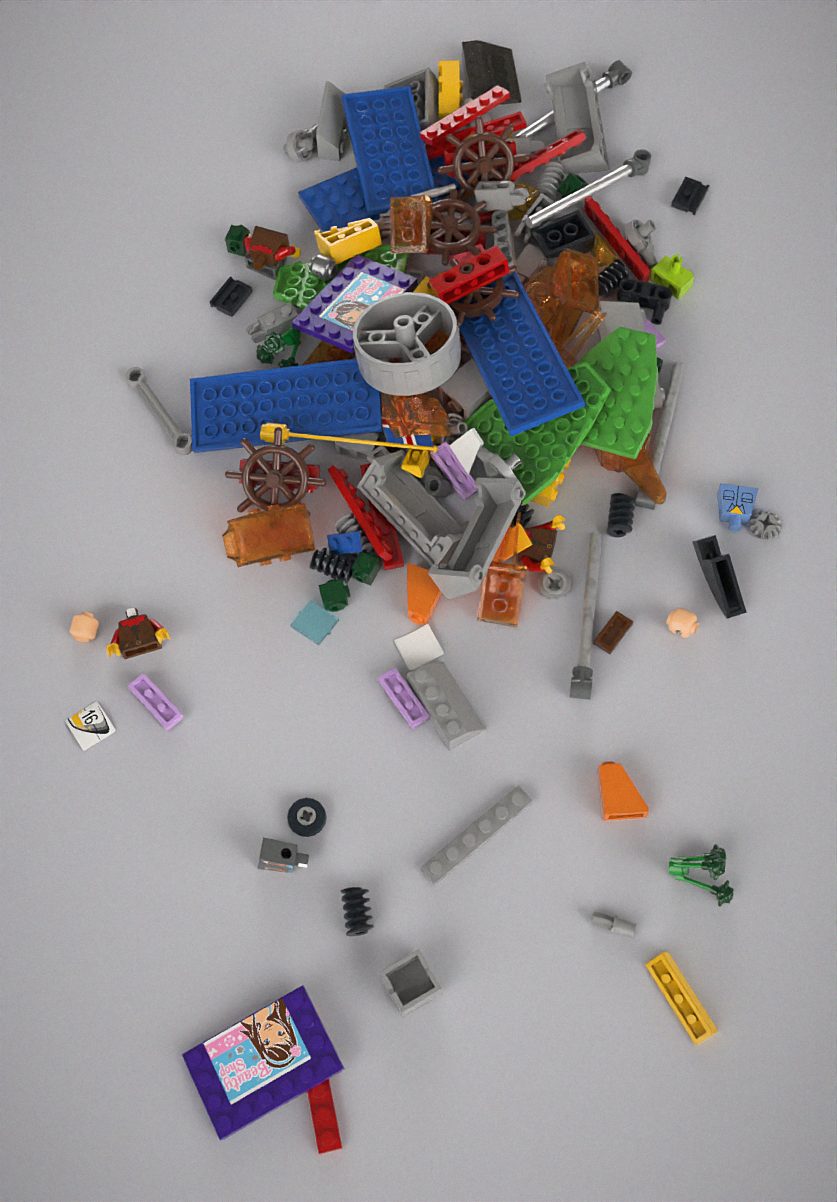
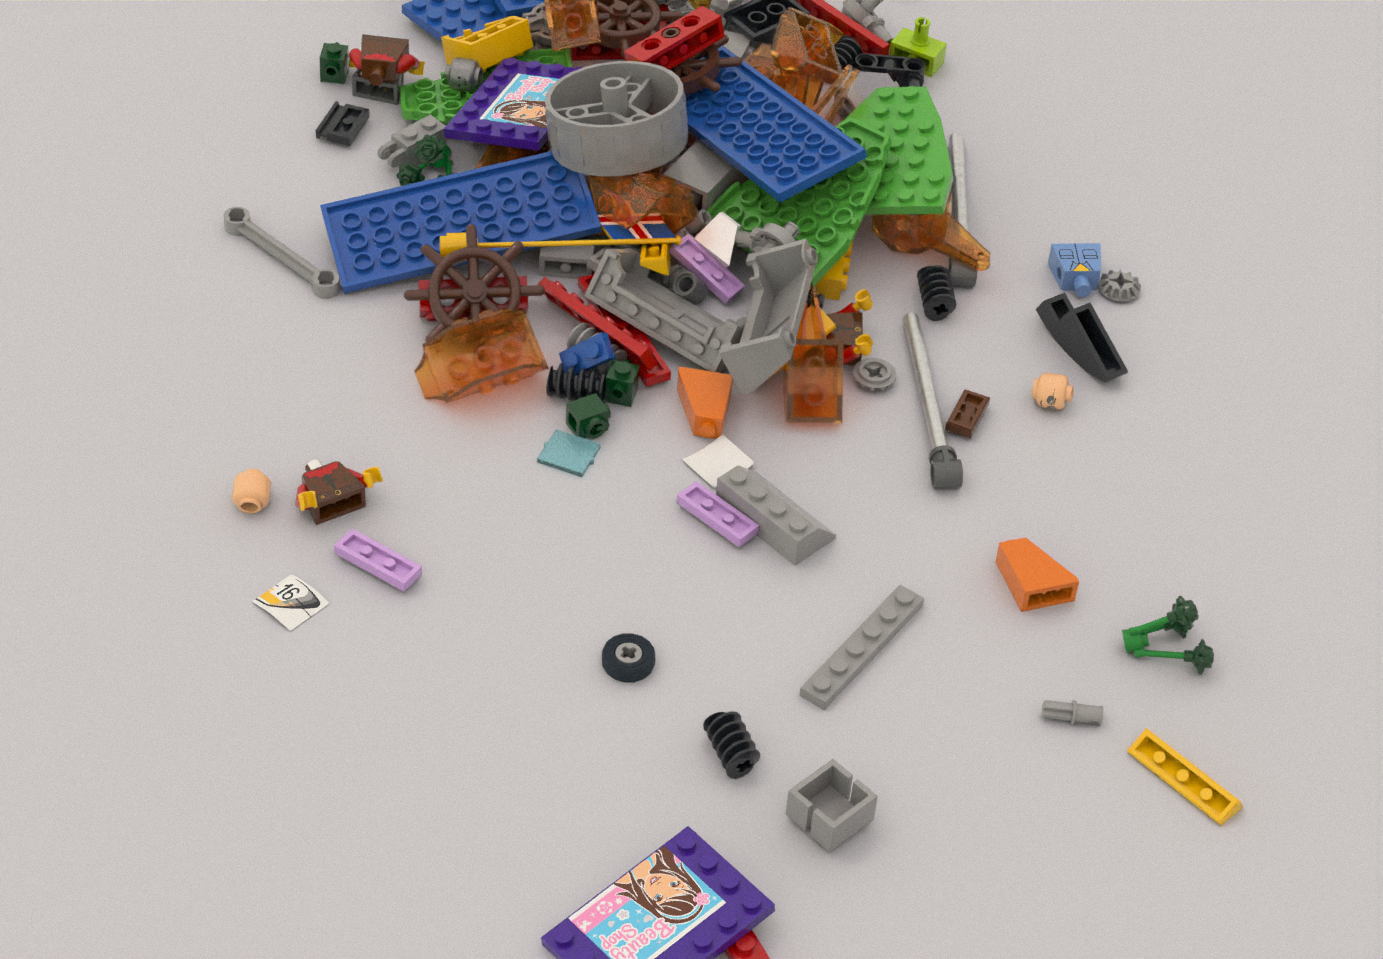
camera: 20 degrees left, 20 degrees down
(272, 858) = (607, 697): dark grey torso -> none

